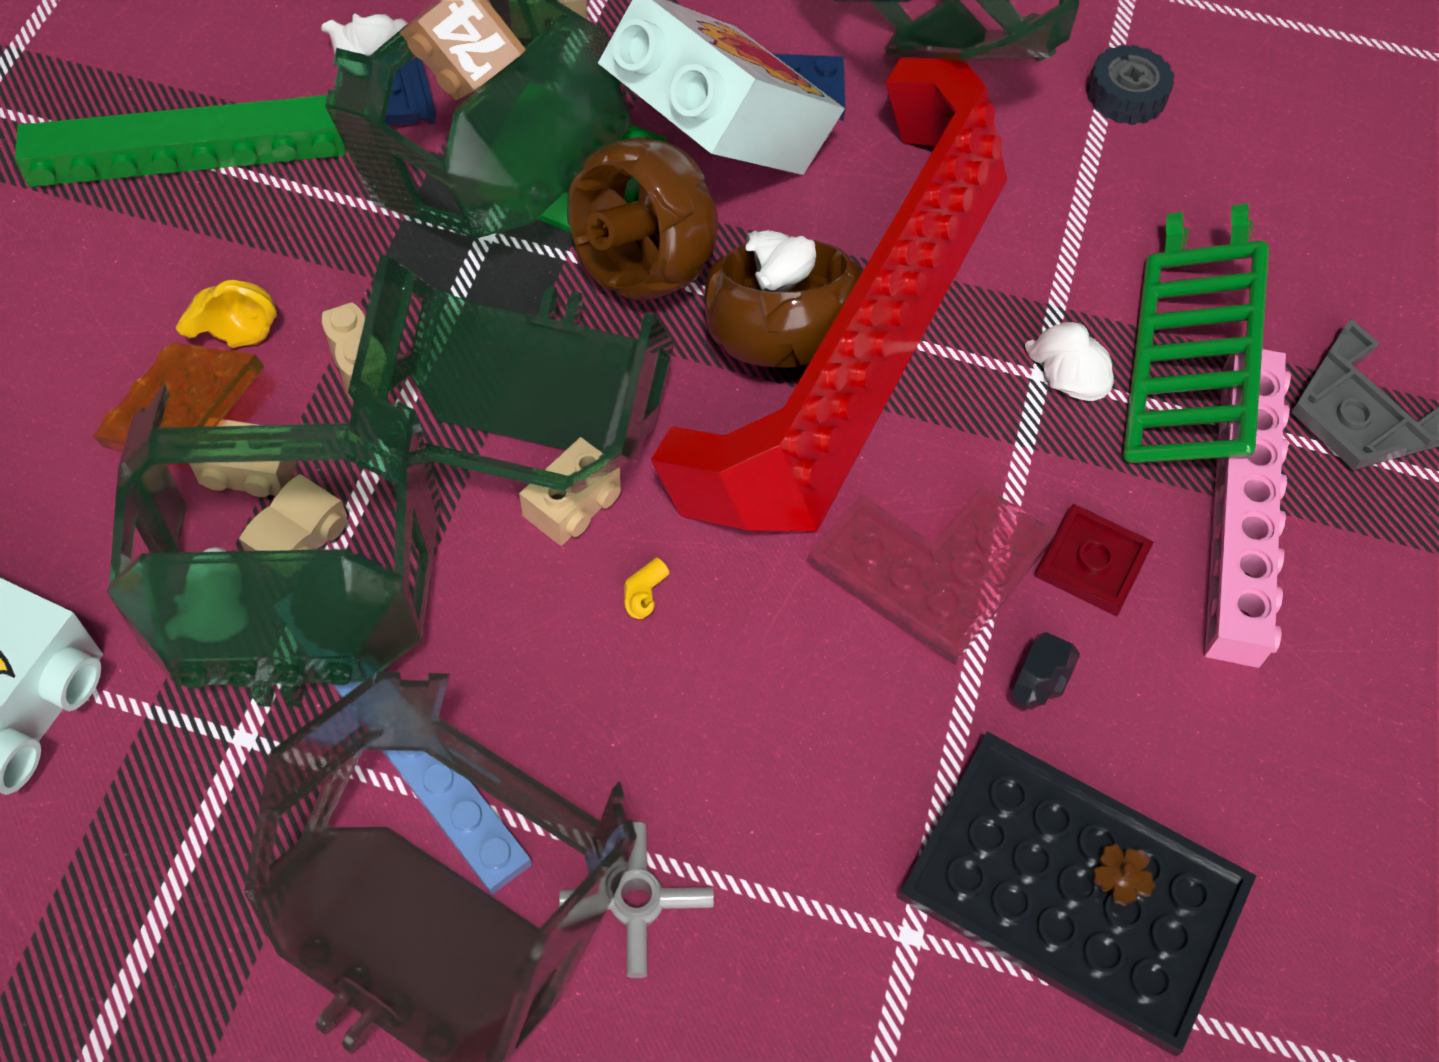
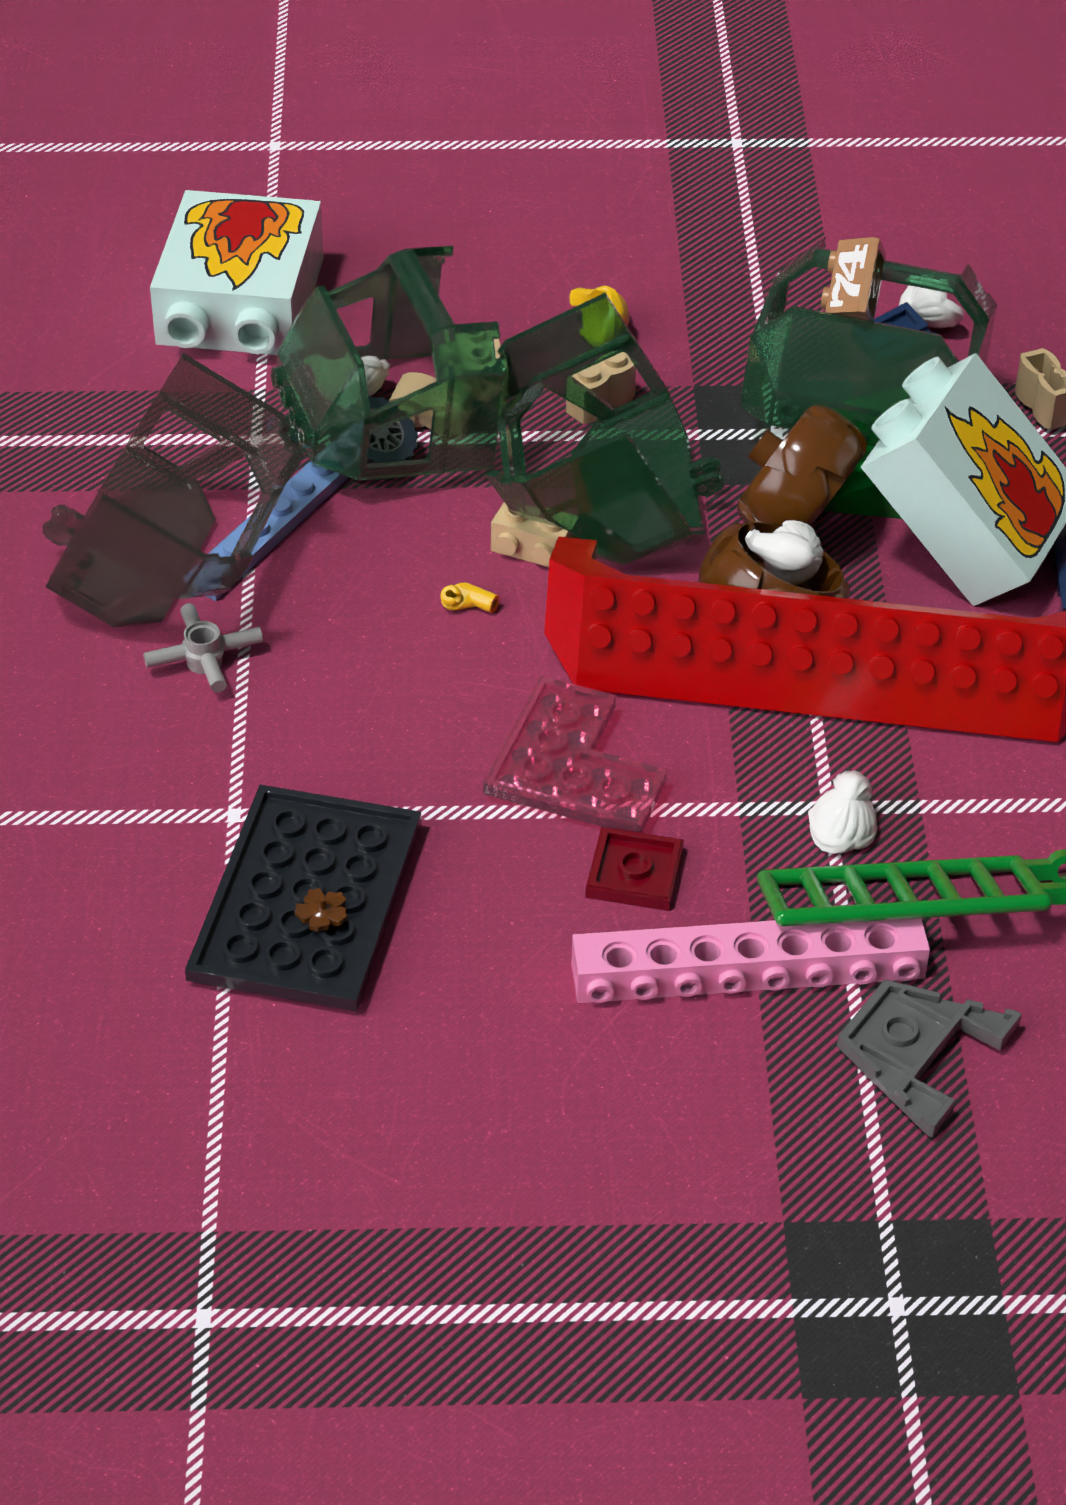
camera: 75 degrees right, 15 degrees down
(176, 141) = (746, 229): green brick -> none
(200, 384) = (507, 307): clear orange plate -> none
(1044, 671) = (493, 838): black rock -> none

